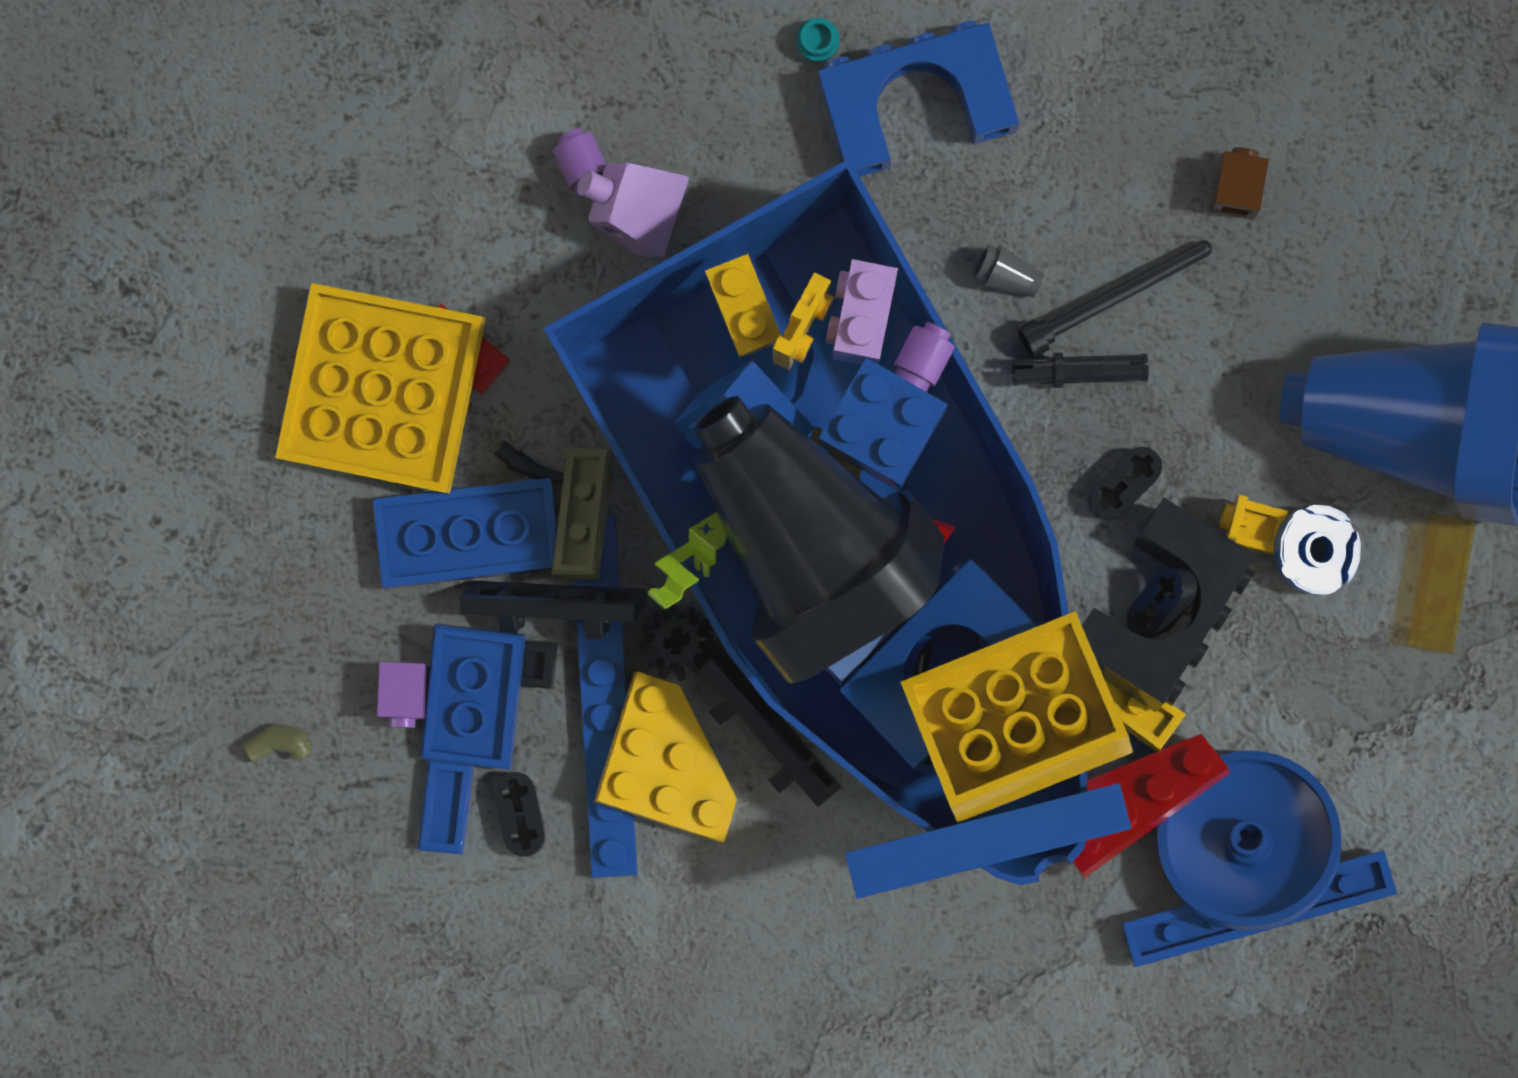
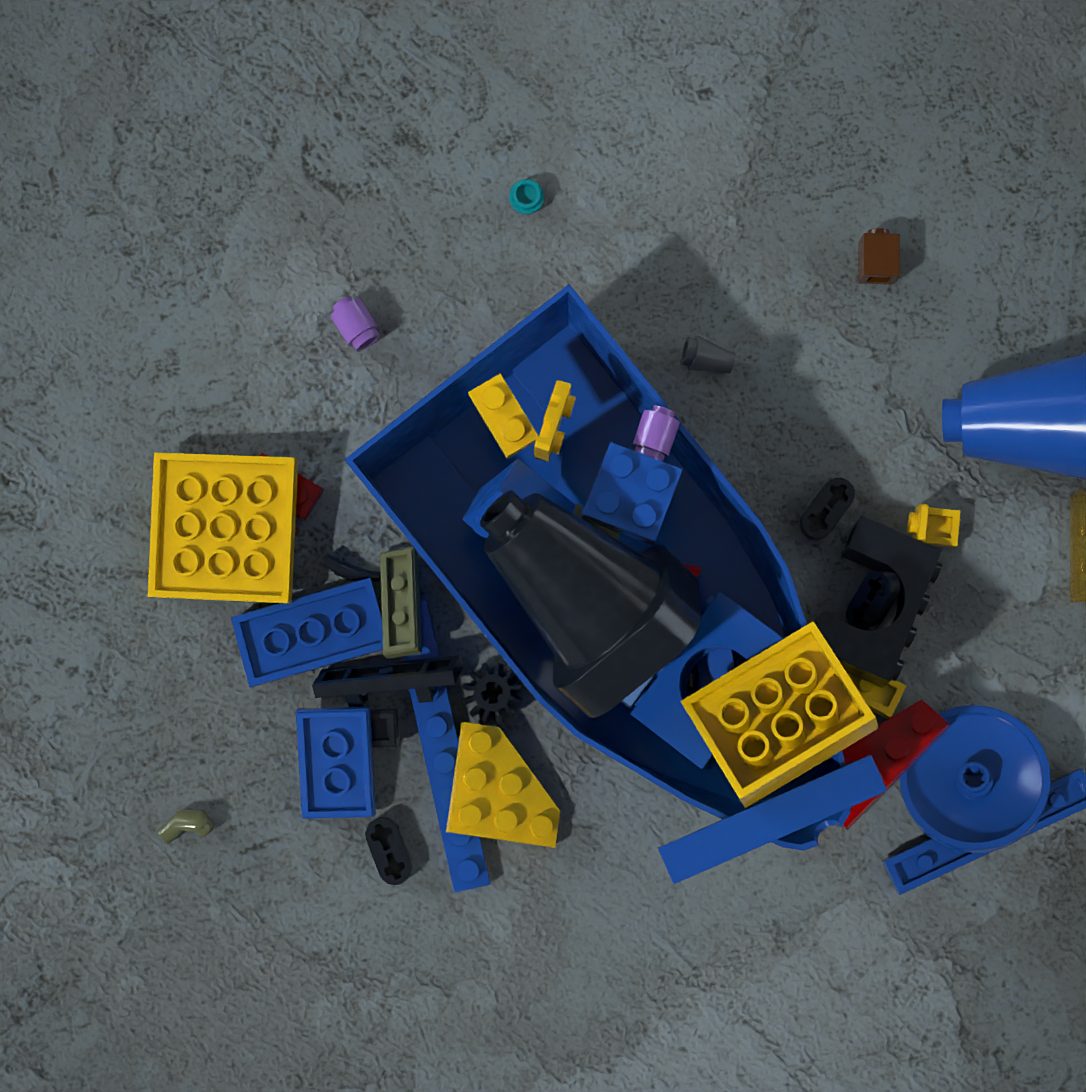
camera: 10 degrees left, 0 degrees up
(402, 693) = (278, 769): medium lavender brick -> none
(446, 807) = (328, 854): blue tile -> none
(634, 205) = (402, 349): lavender torso -> none
(704, 549) = (504, 619): lime piece -> none
(770, 728) = (587, 758): black hinge -> none
(864, 313) = (603, 405): lavender brick -> none
(962, 58) = (643, 193): blue arch -> none
(1038, 335) = (740, 402): black piece -> none
(1079, 369) = (776, 424): black pin -> none
(1294, 556) = (970, 542): tile -> none

